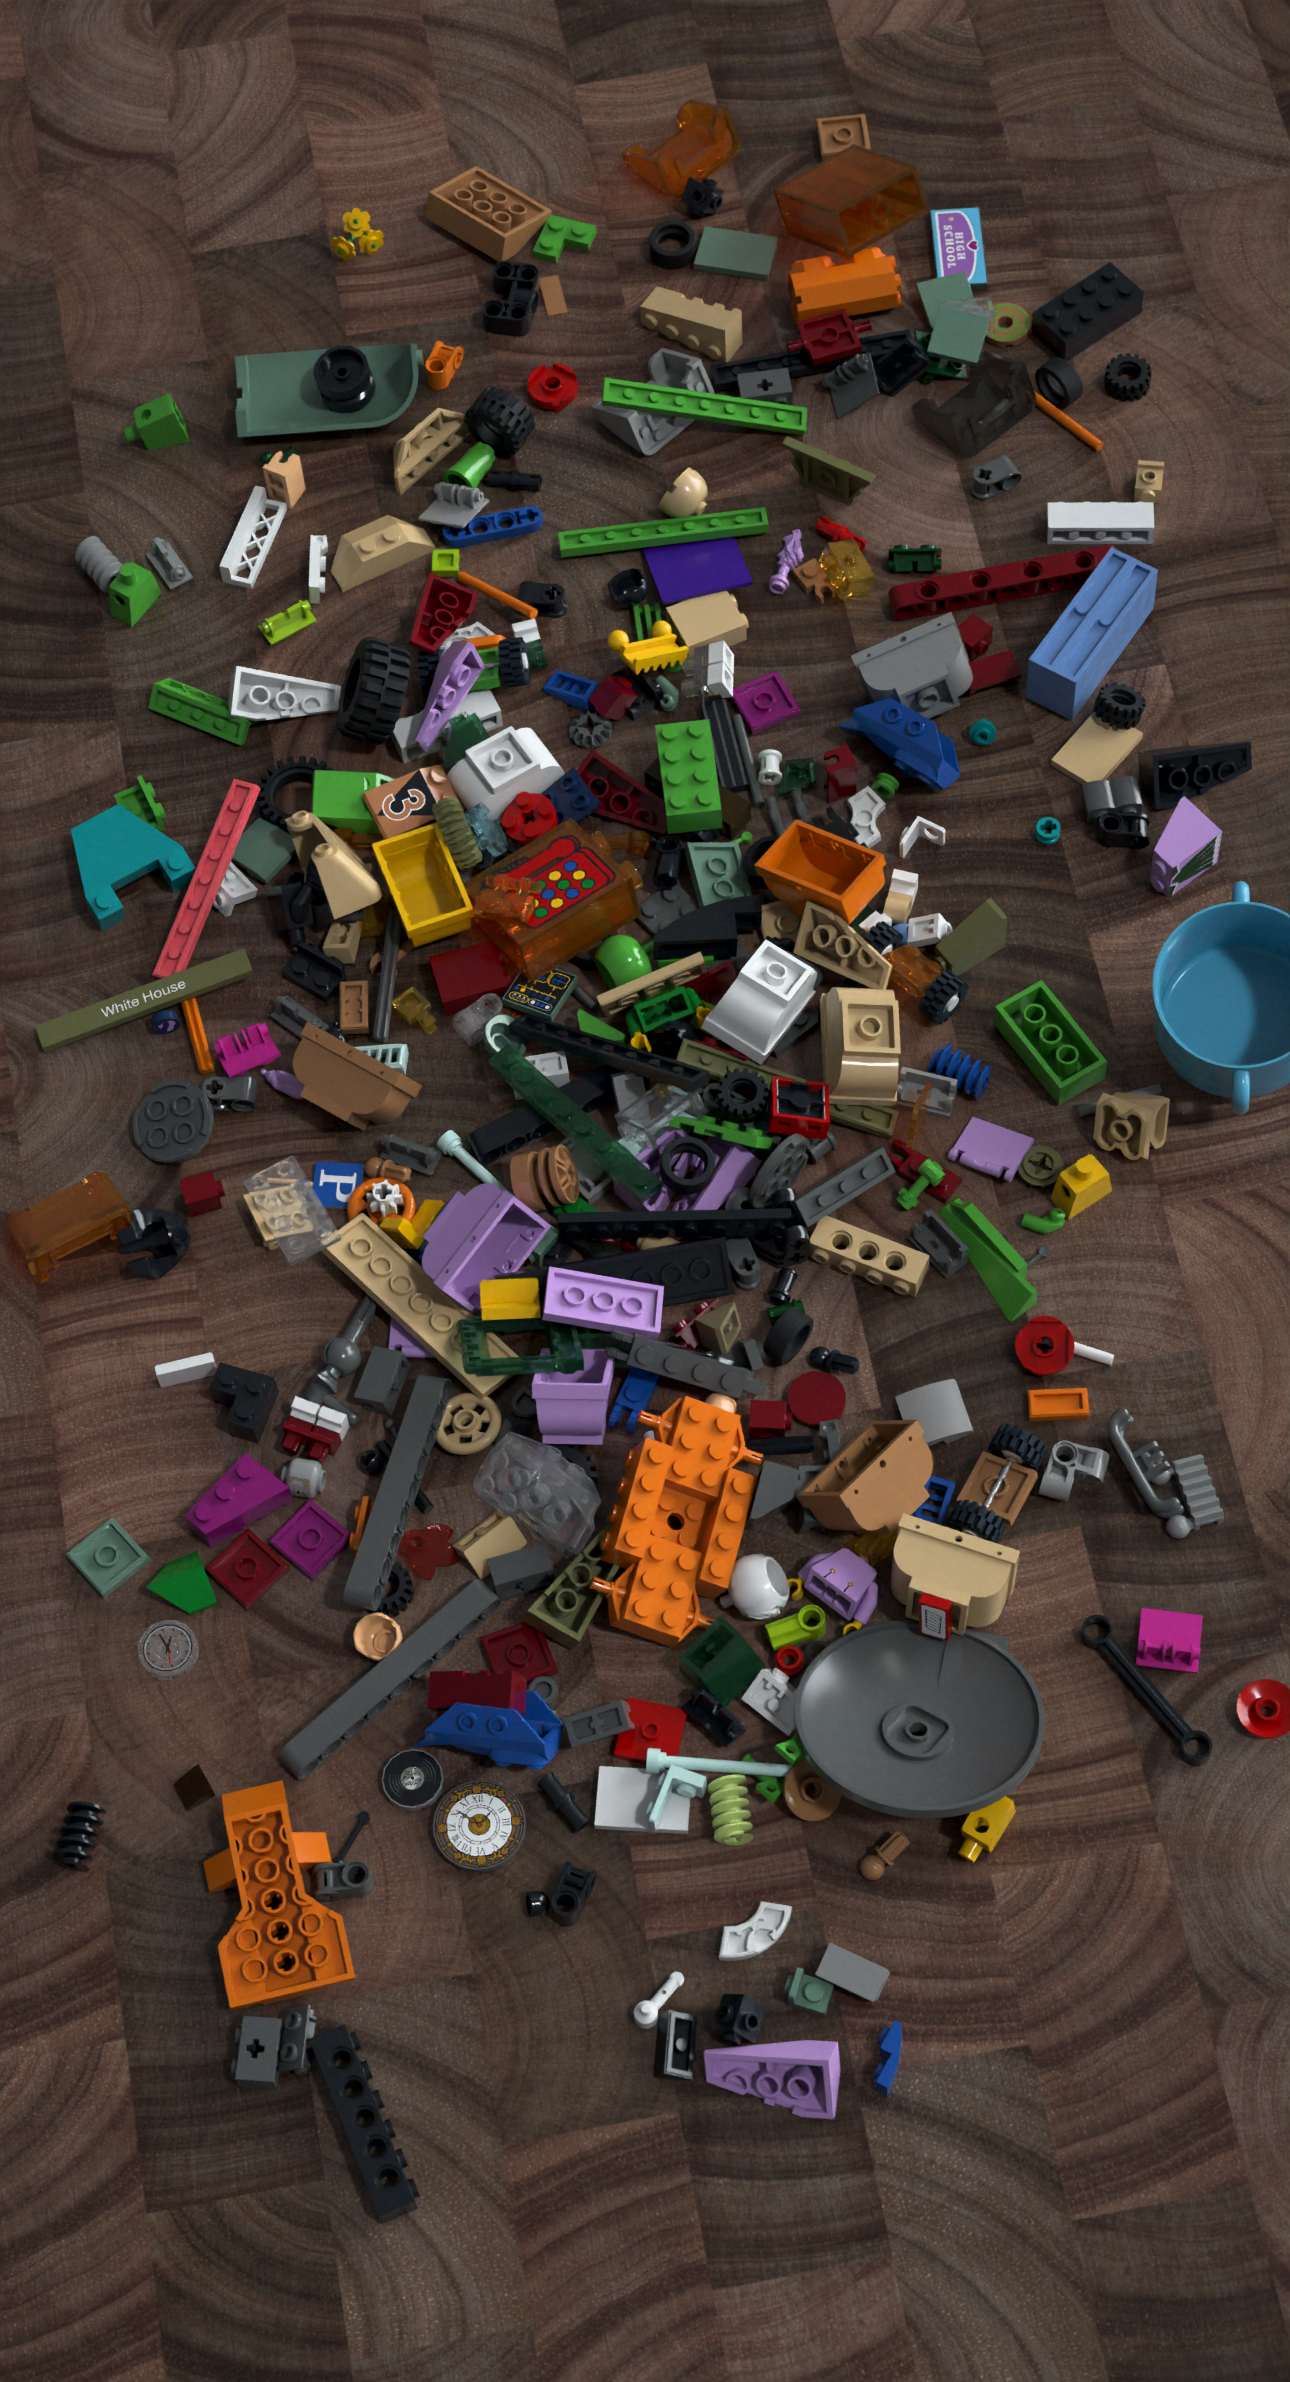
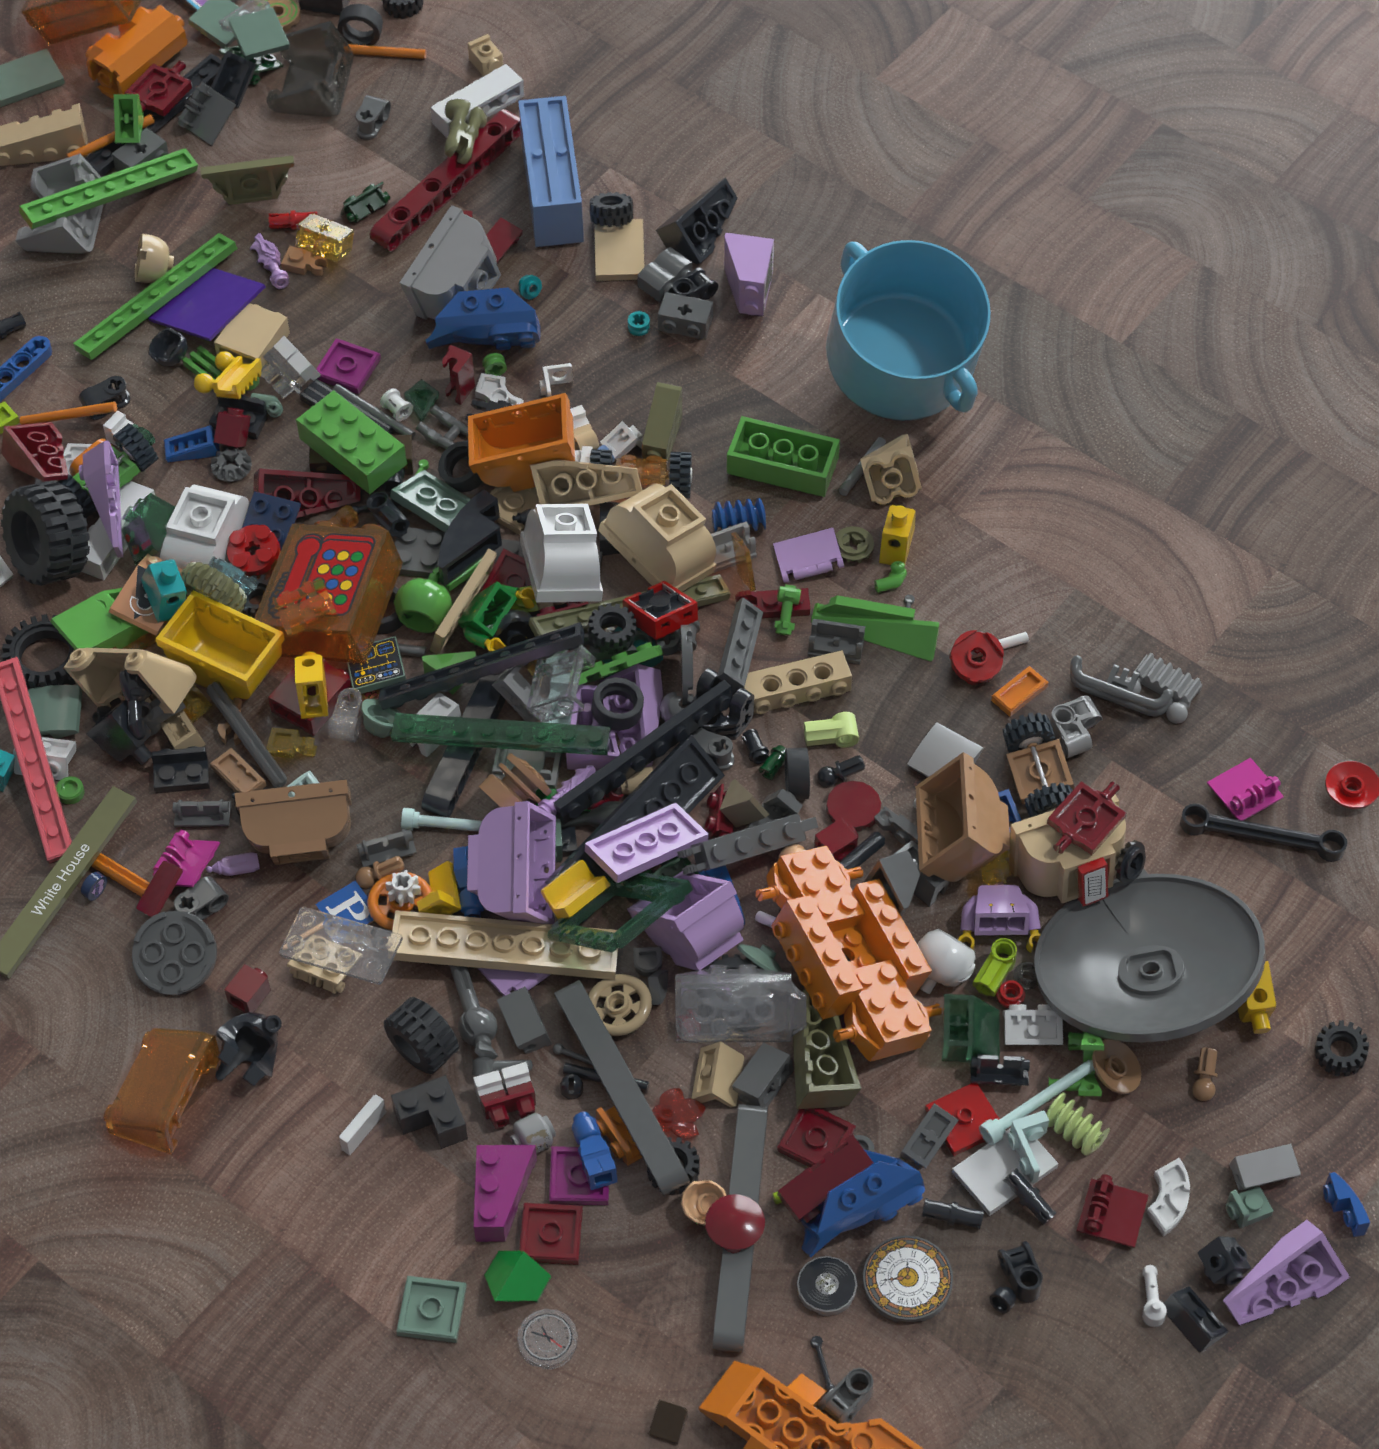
camera: 45 degrees left, 5 degrees down
(205, 1061) = (159, 889): none -> dark red slope
(220, 928) = (70, 790): none -> bright green tile
(285, 1331) = (421, 1035): none -> black tyre
(329, 1529) = (593, 1152): none -> blue piece
(379, 1671) = (735, 1222): none -> dark red dish
(415, 804) = (161, 583): none -> teal torso
(461, 970) = (308, 673): none -> yellow torso
(605, 1472) = (761, 956): none -> sand green dish
(613, 1206) = (580, 776): none -> lavender piece
(635, 1838) = (1029, 1196): none -> black pin
(693, 1906) = (1112, 1212): none -> dark red hinge
(748, 358) = (103, 141): none -> orange bar
(773, 350) = (128, 118): none -> bright green slope
(863, 1323) = (839, 730): none -> yellowish green piece
(966, 1556) = (1086, 818): none -> dark red plate
(1000, 1625) = (1130, 862): none -> black gear
(1028, 1909) = (1341, 1033): none -> black tyre
(1043, 548) = (463, 128): none -> olive piece
(1092, 851) = (685, 315): none -> dark grey brick

